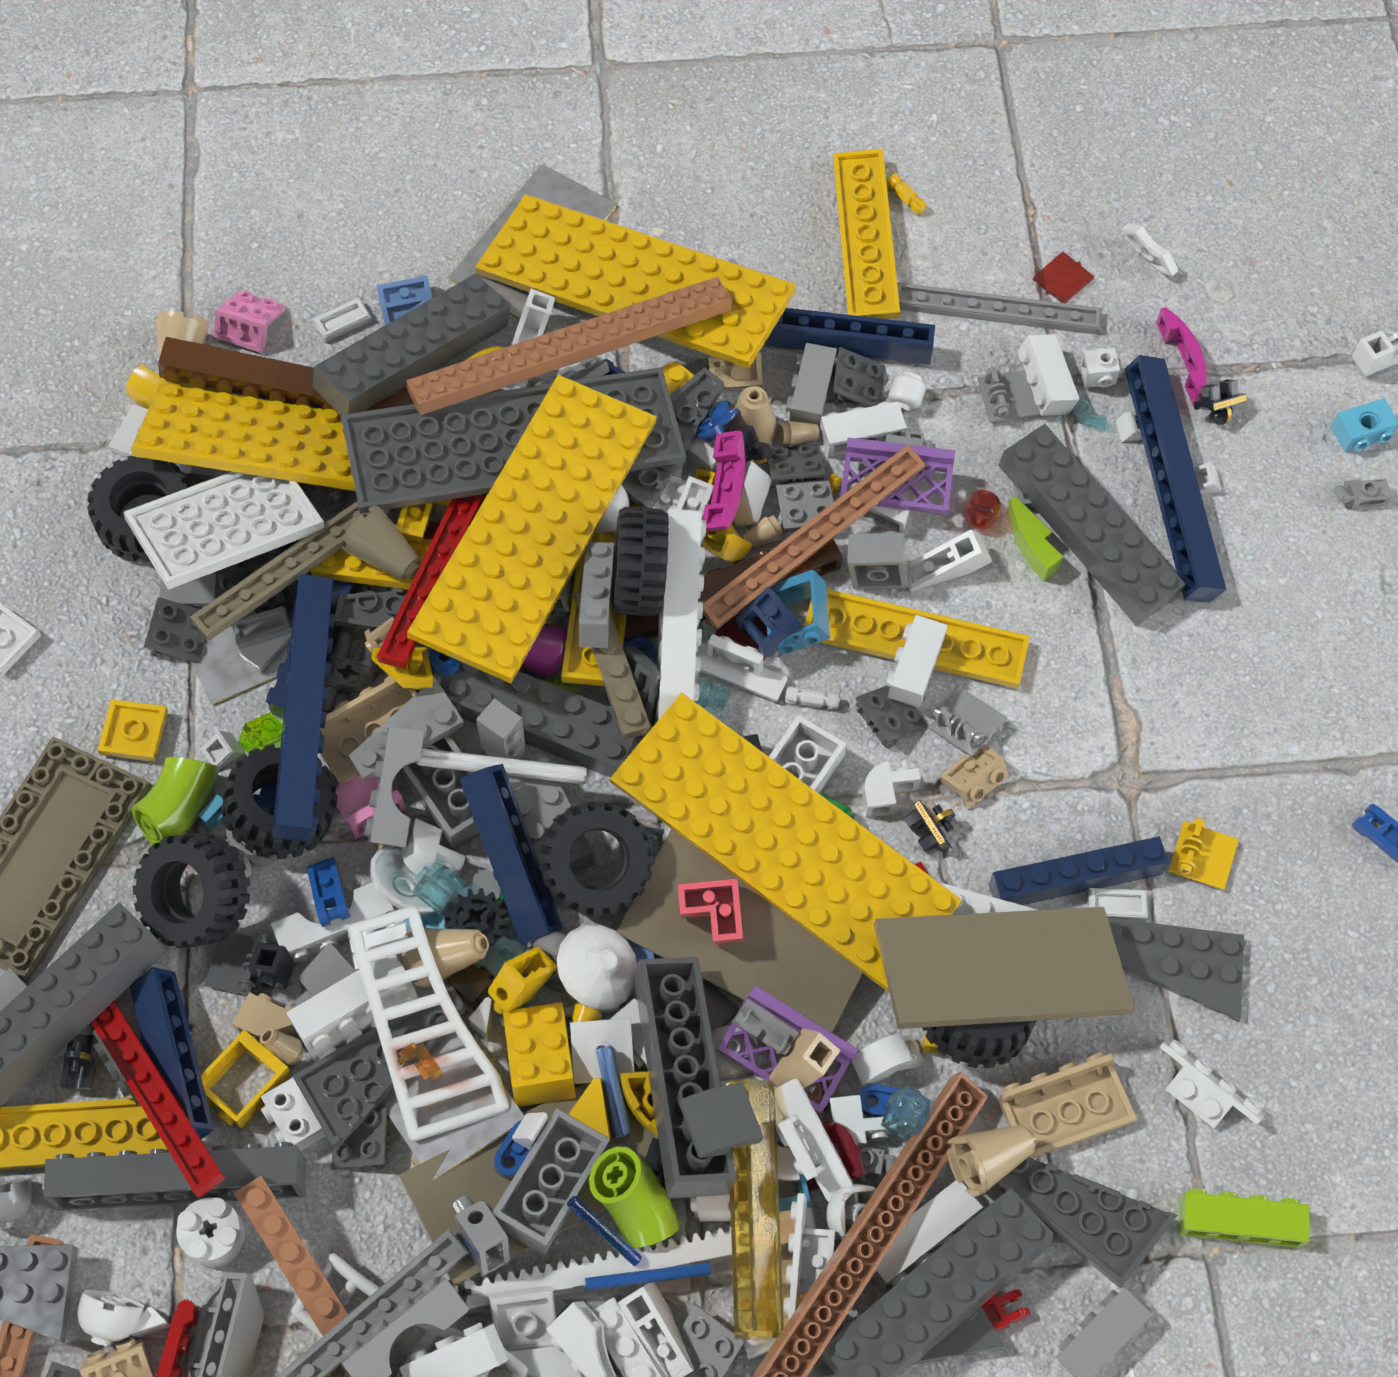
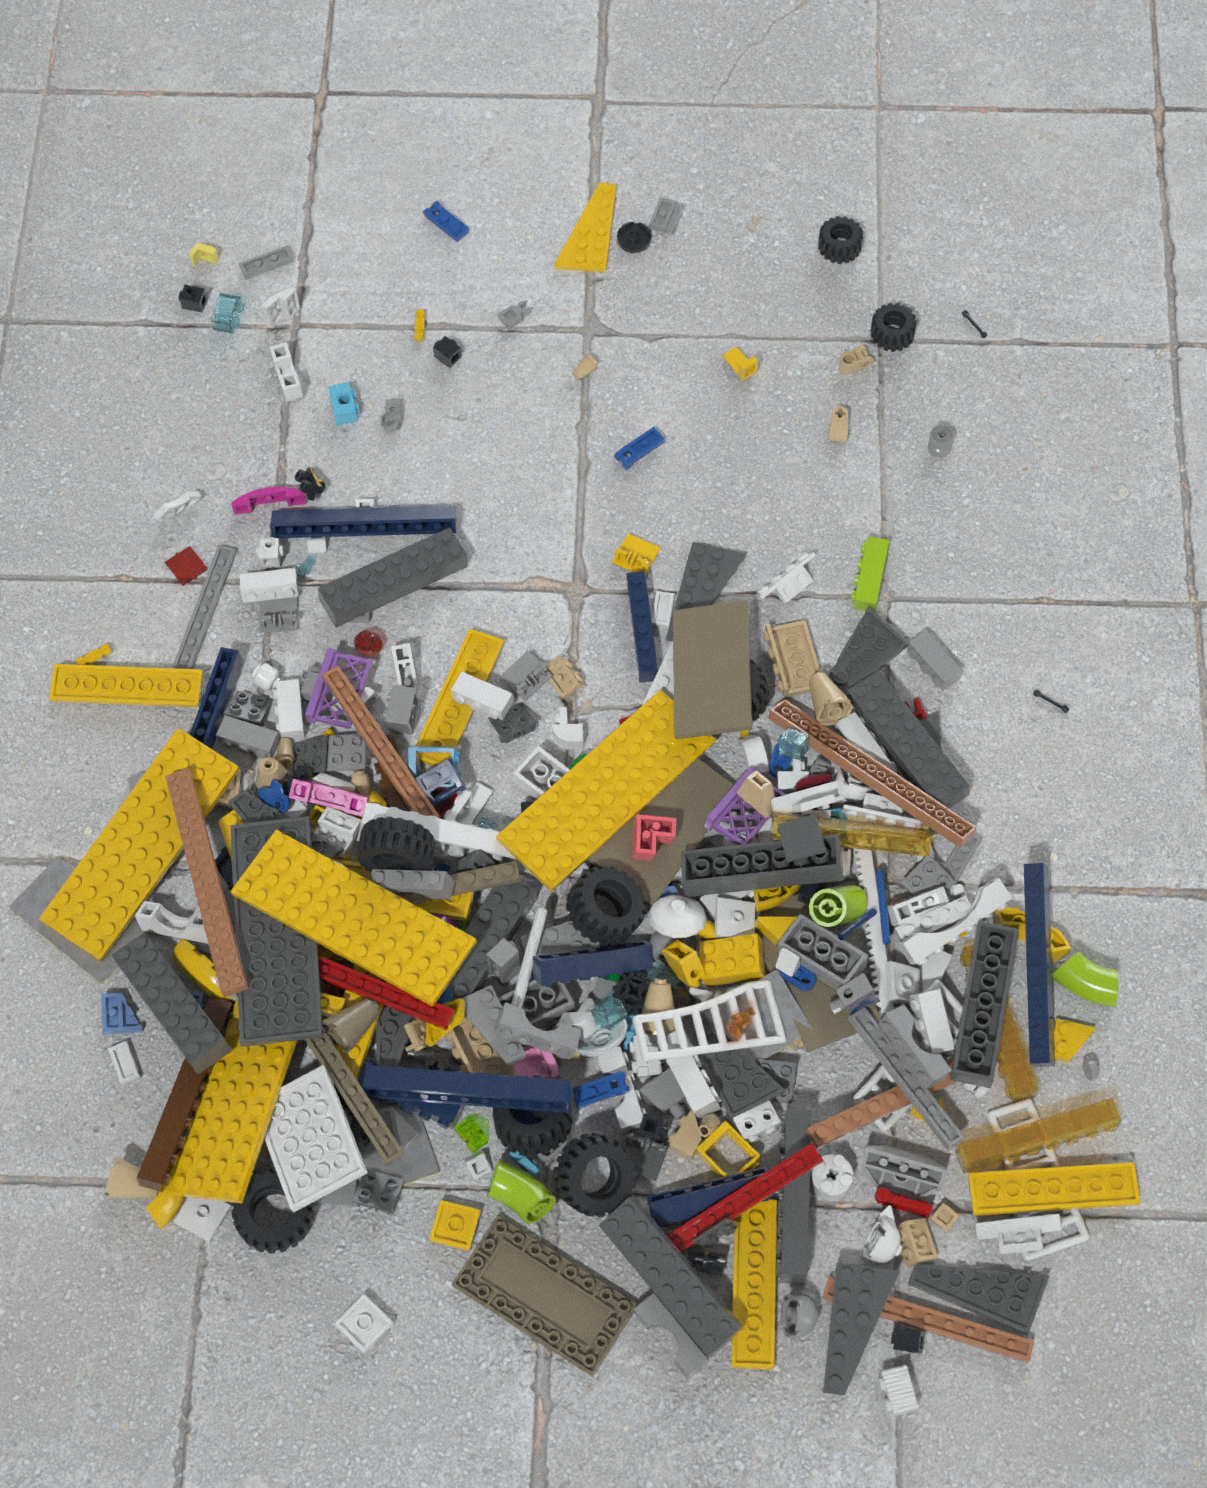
camera: 80 degrees left, 0 degrees up
(245, 320) = (112, 1131): bright pink bracket -> none
(613, 1091) = (754, 913): medium blue axle -> none
(765, 1027) = (735, 813): light grey hinge -> none
(812, 698) = (493, 769): white axle -> none
(935, 838) = (606, 706): black hips -> none
(1033, 540) = (395, 616): lime slope -> none

